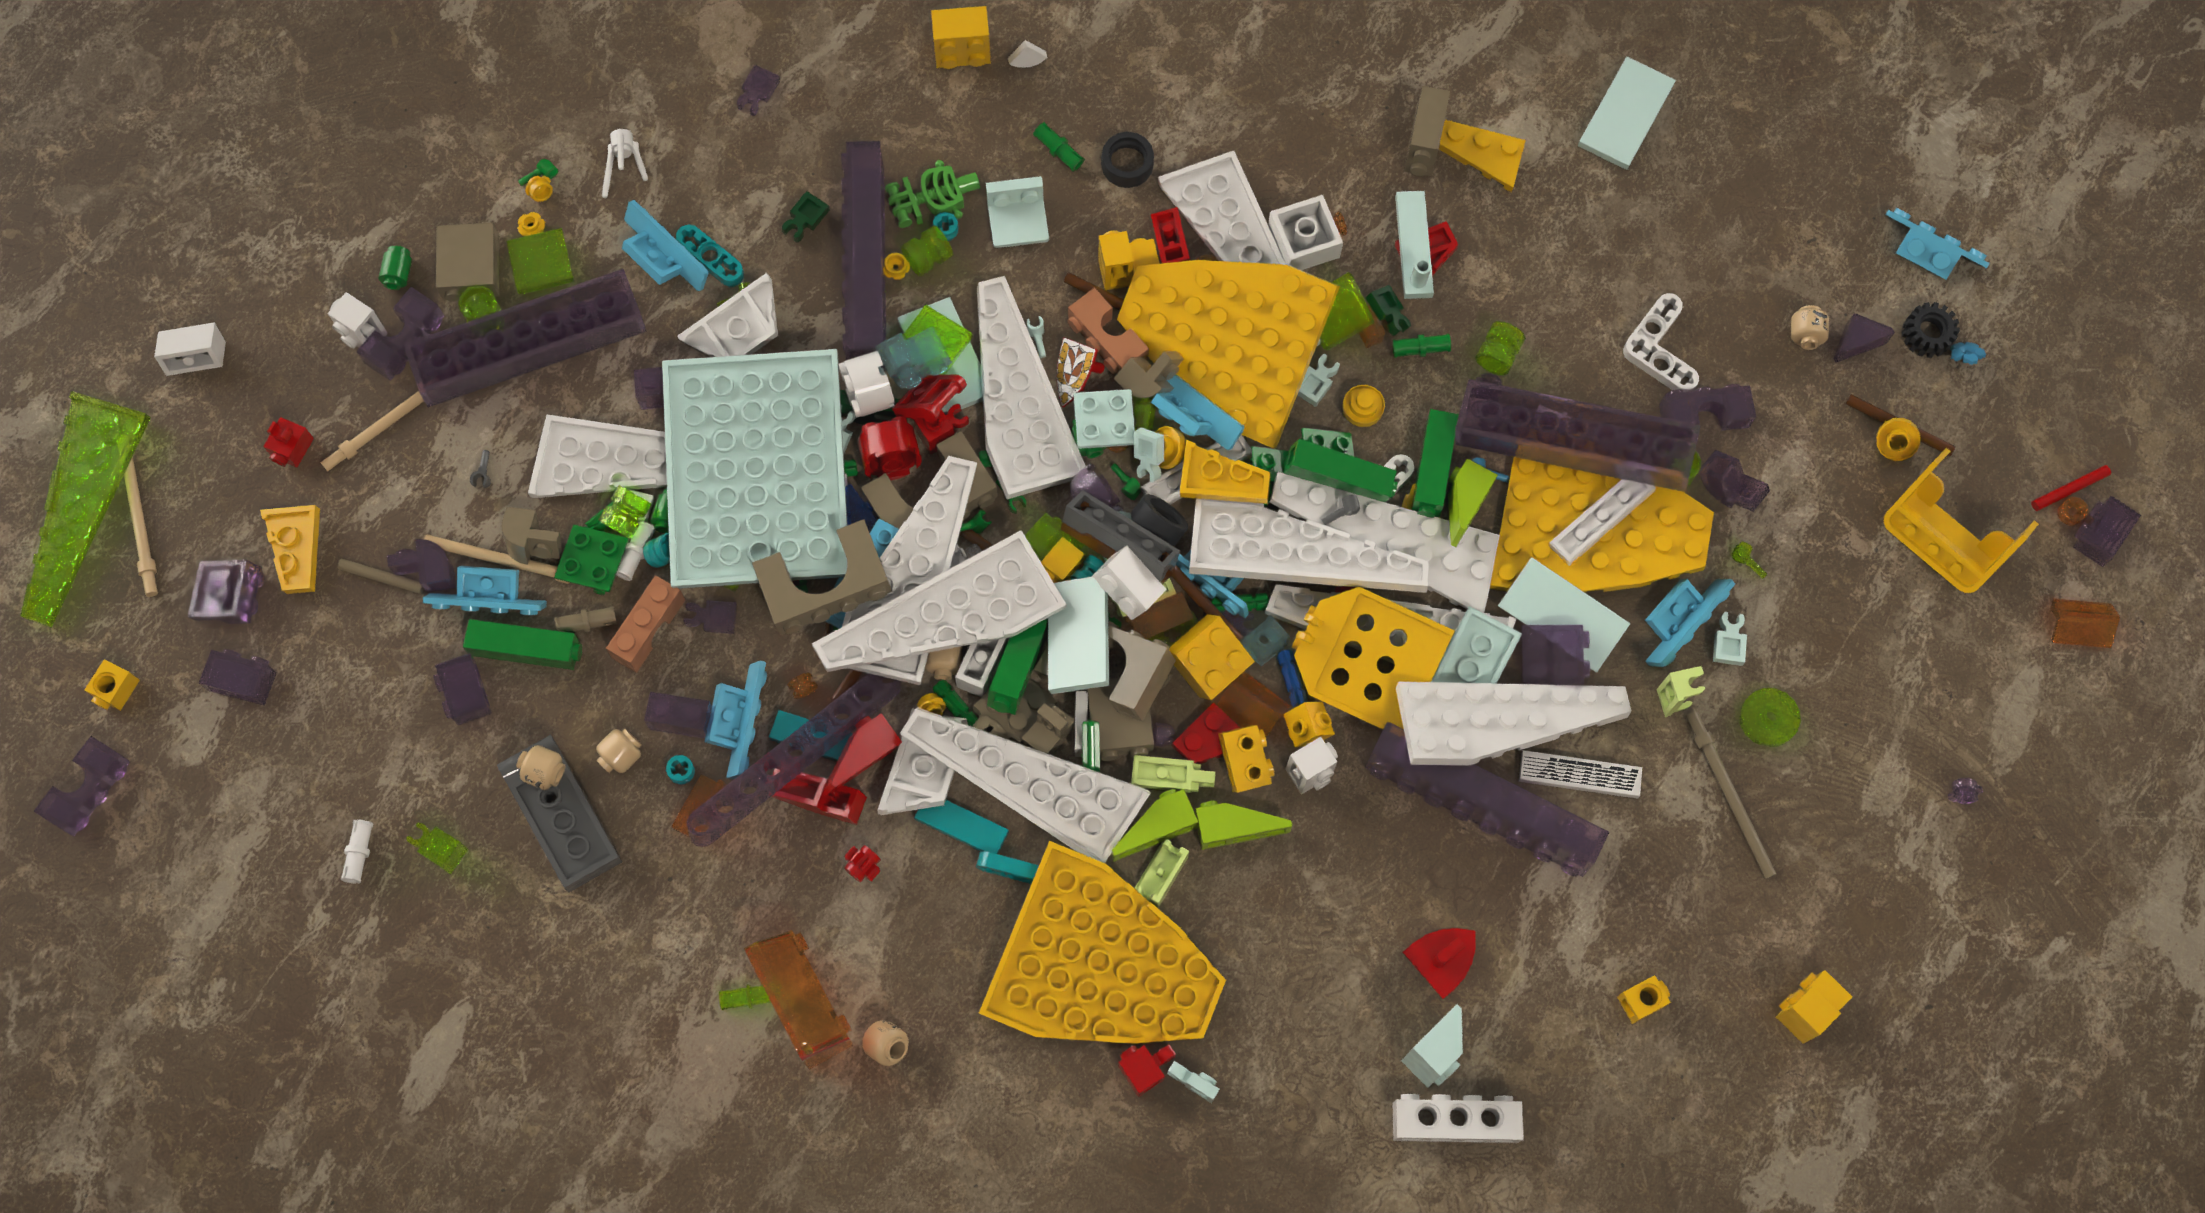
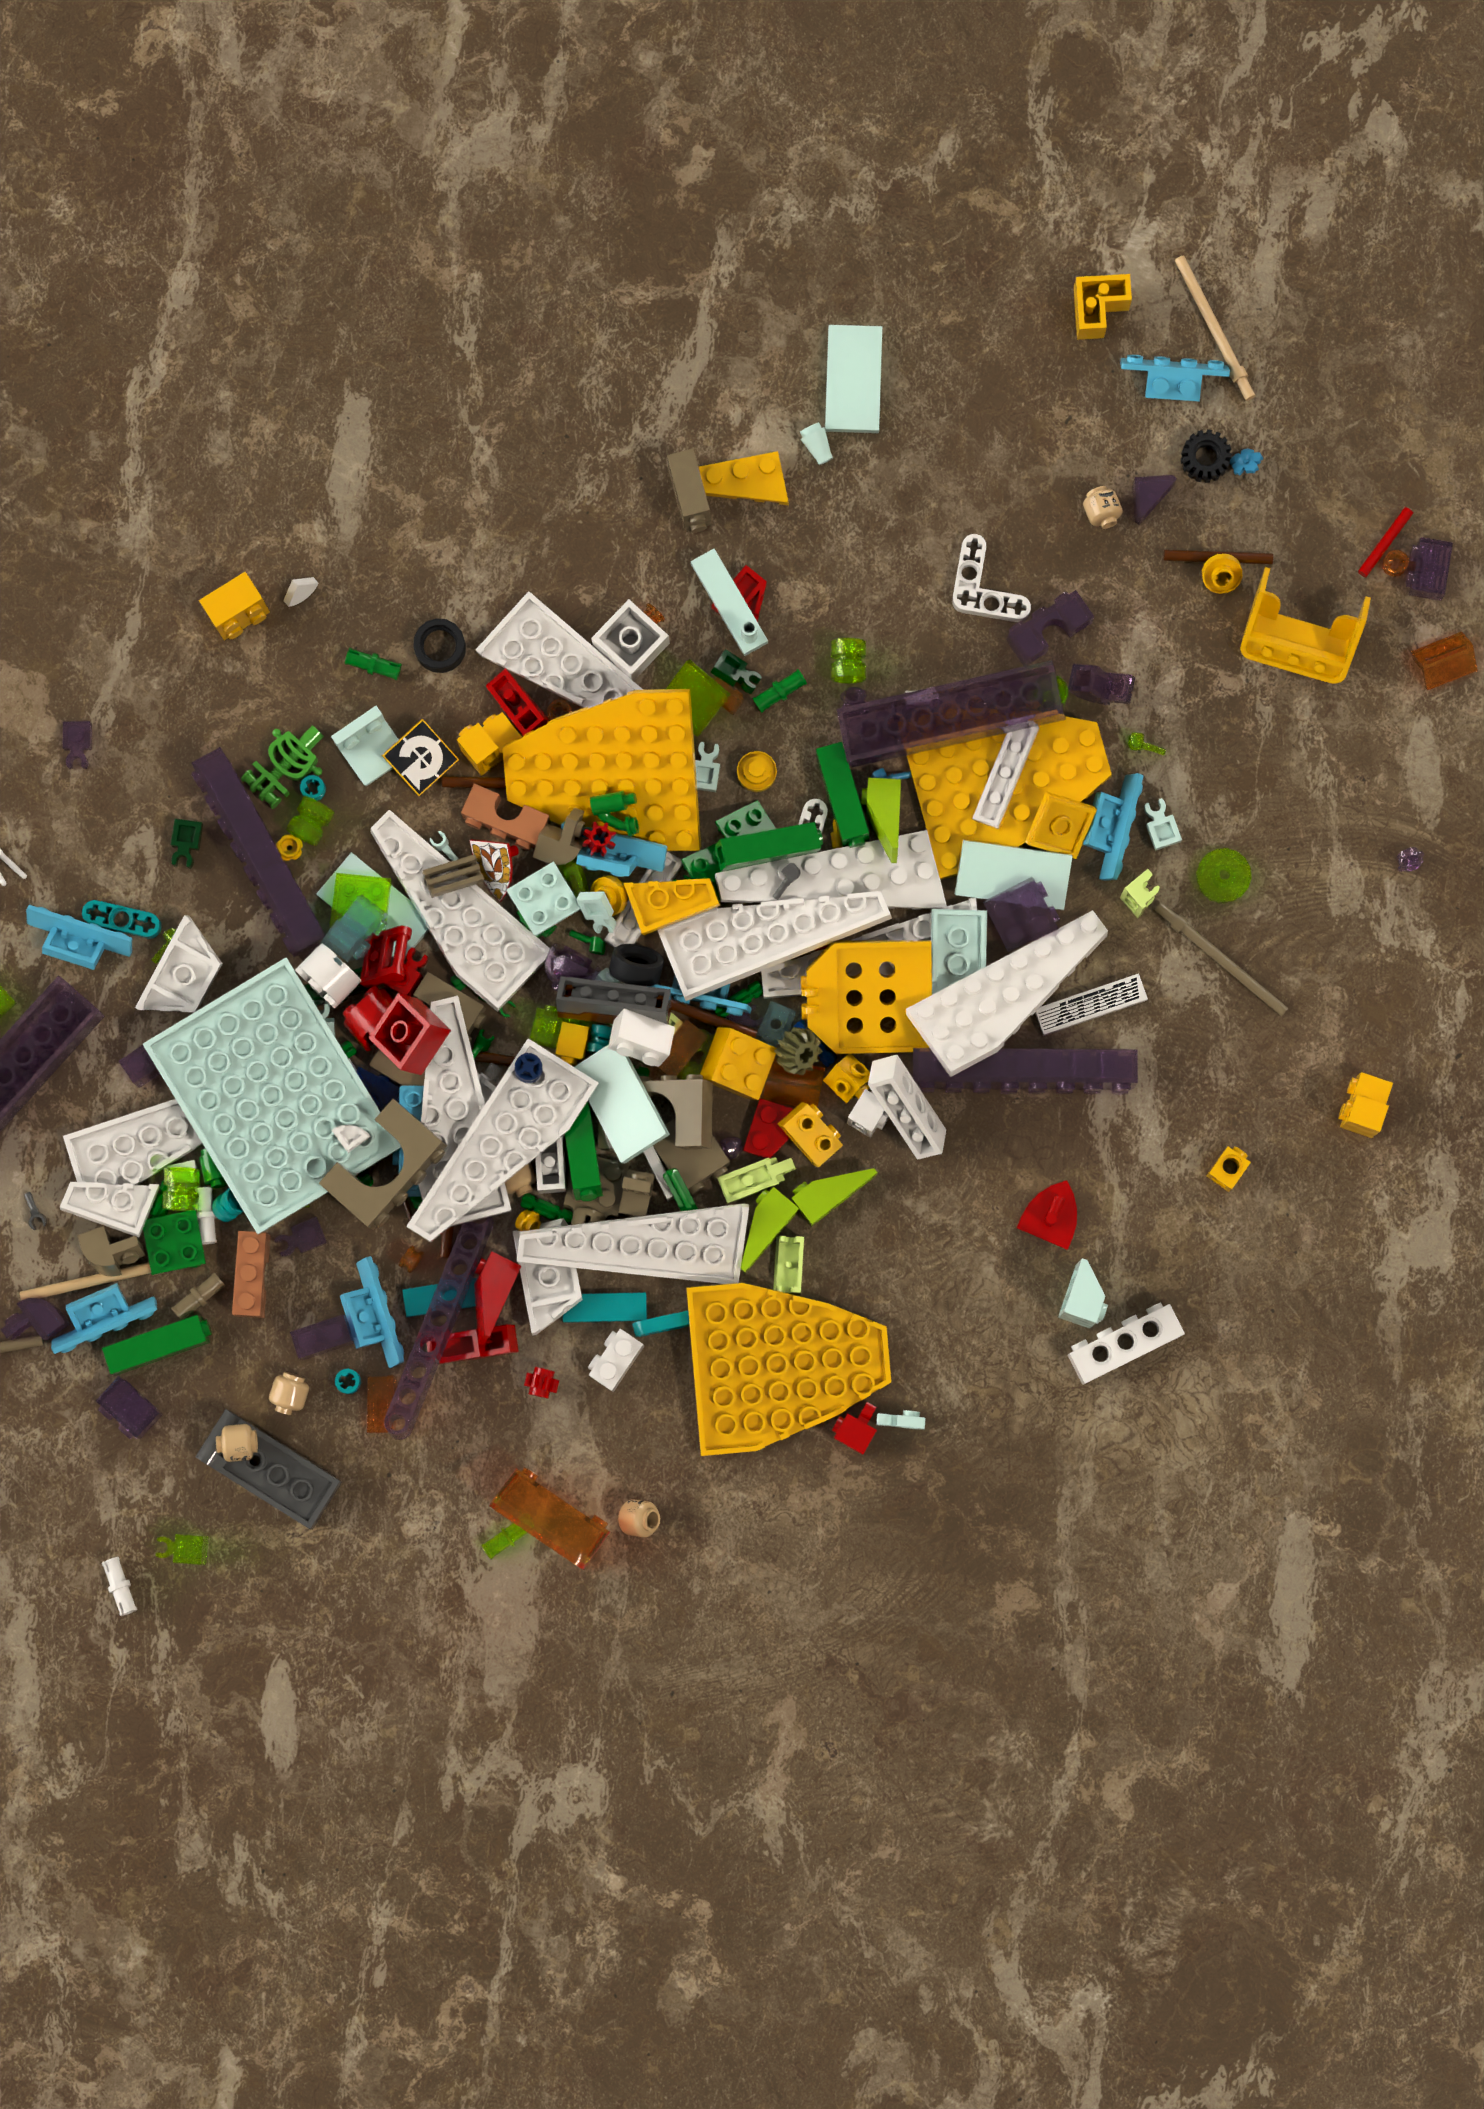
camera: 20 degrees left, 10 degrees up
(556, 498) = (115, 1206): none -> white wing
(806, 539) = (350, 1136): none -> white tile
(912, 471) = (409, 1034): none -> red brick
(945, 878) = (616, 1360): none -> white brick
(1006, 548) = (529, 1060): none -> dark blue wheel
(1031, 354) = (469, 860): none -> dark tan tile
(1057, 245) = (420, 757): none -> tile
(1177, 388) = (602, 832): none -> red gear
(1207, 359) = (605, 804): none -> green plant
(1273, 672) = (798, 1051): none -> olive gear
(1353, 774) = (907, 1107): none -> white brick
(1565, 149) = (816, 441): none -> light aqua cone
(1632, 589) = (1060, 825): none -> yellow tile
(1891, 144) = (1097, 296): none -> yellow brick
(1994, 272) = (1238, 373): none -> tan bar

